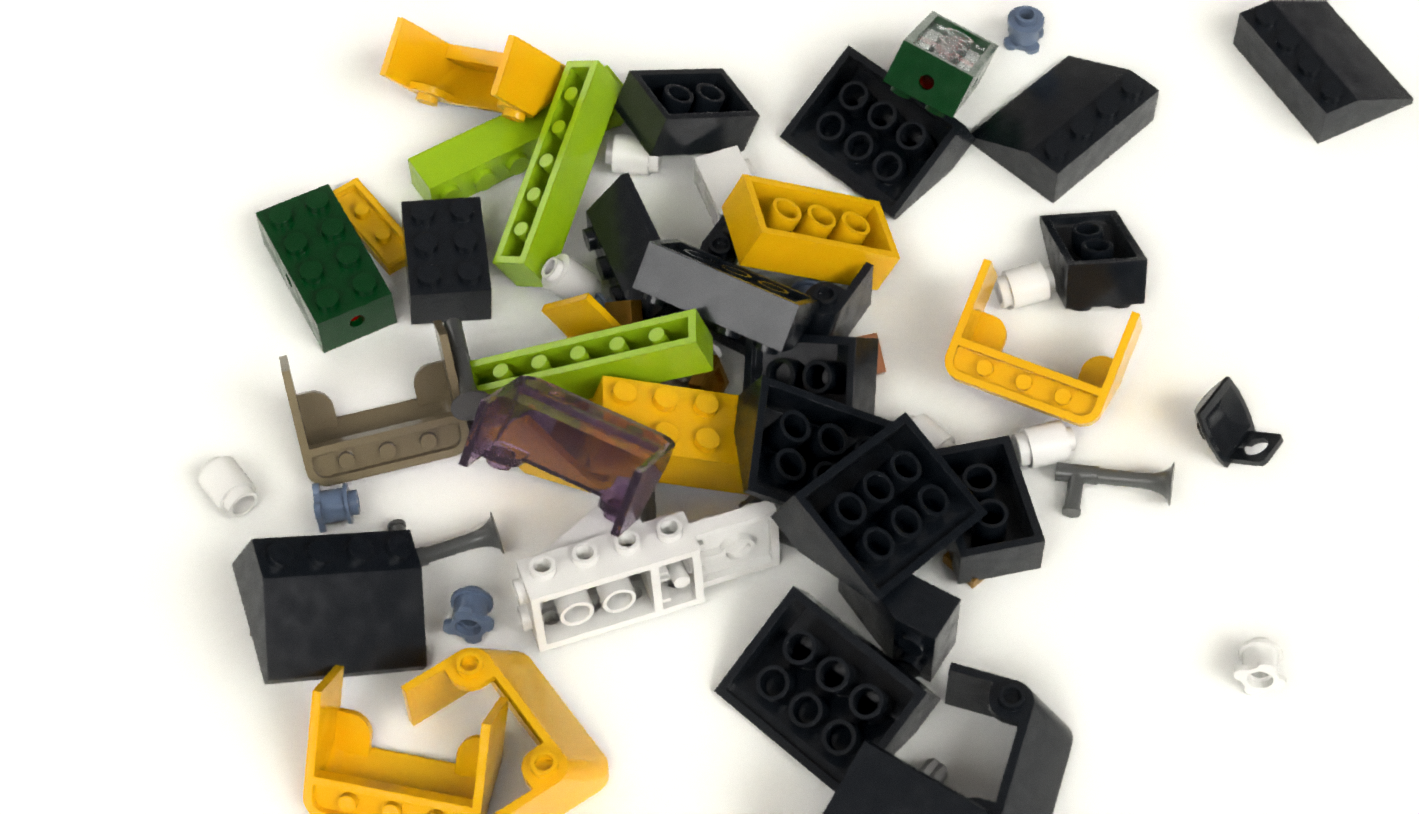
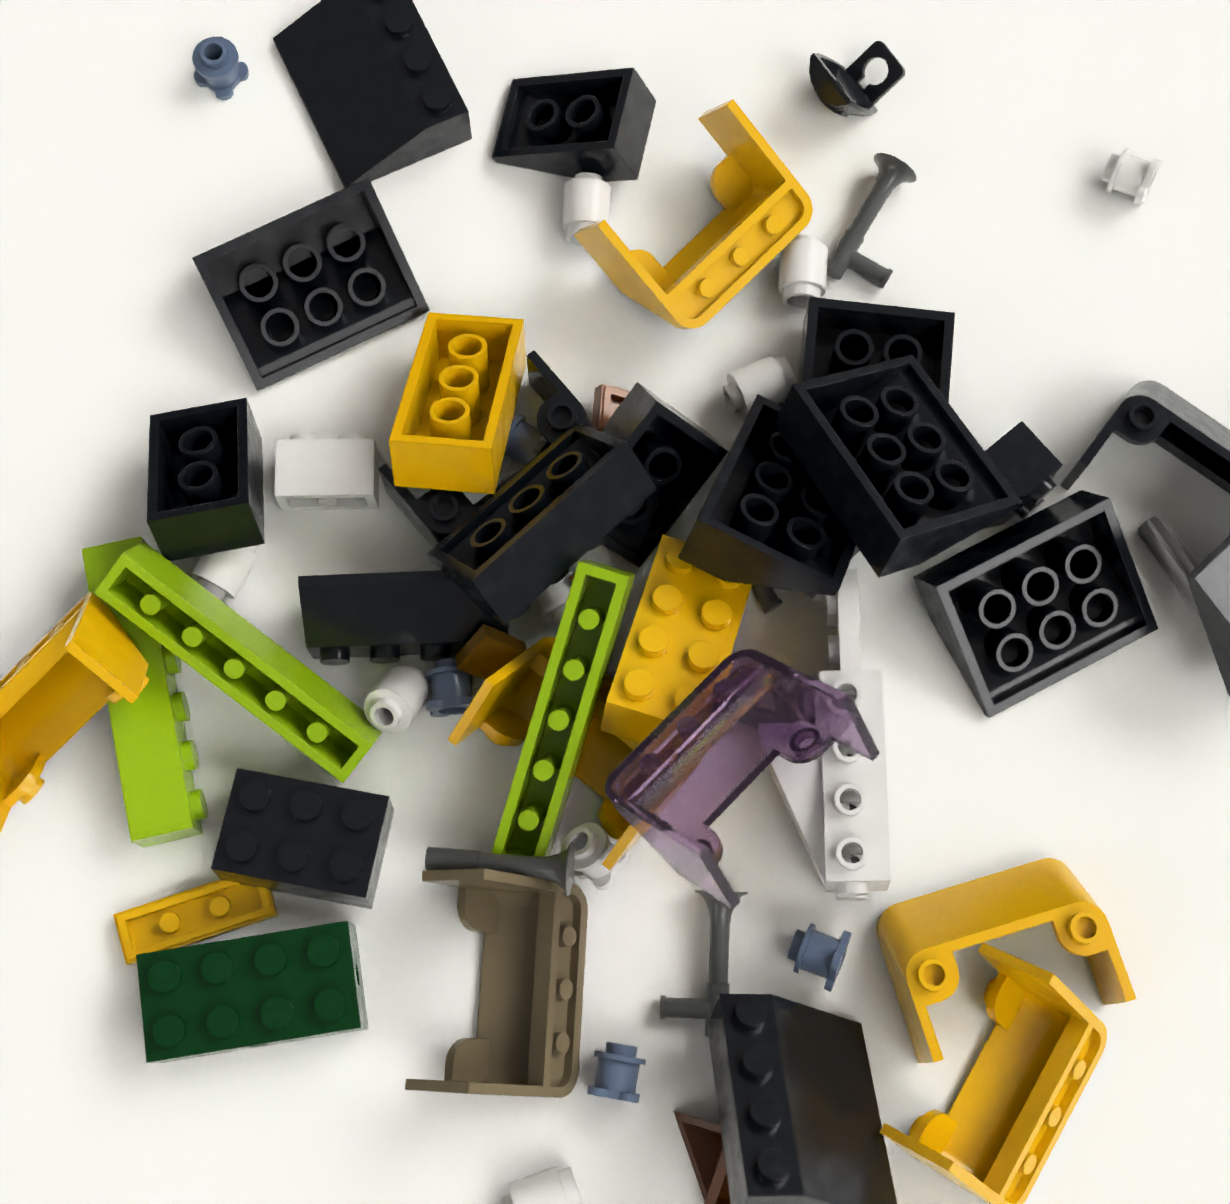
camera: 75 degrees left, 20 degrees up
(940, 65) = (276, 166): dark green brick -> none

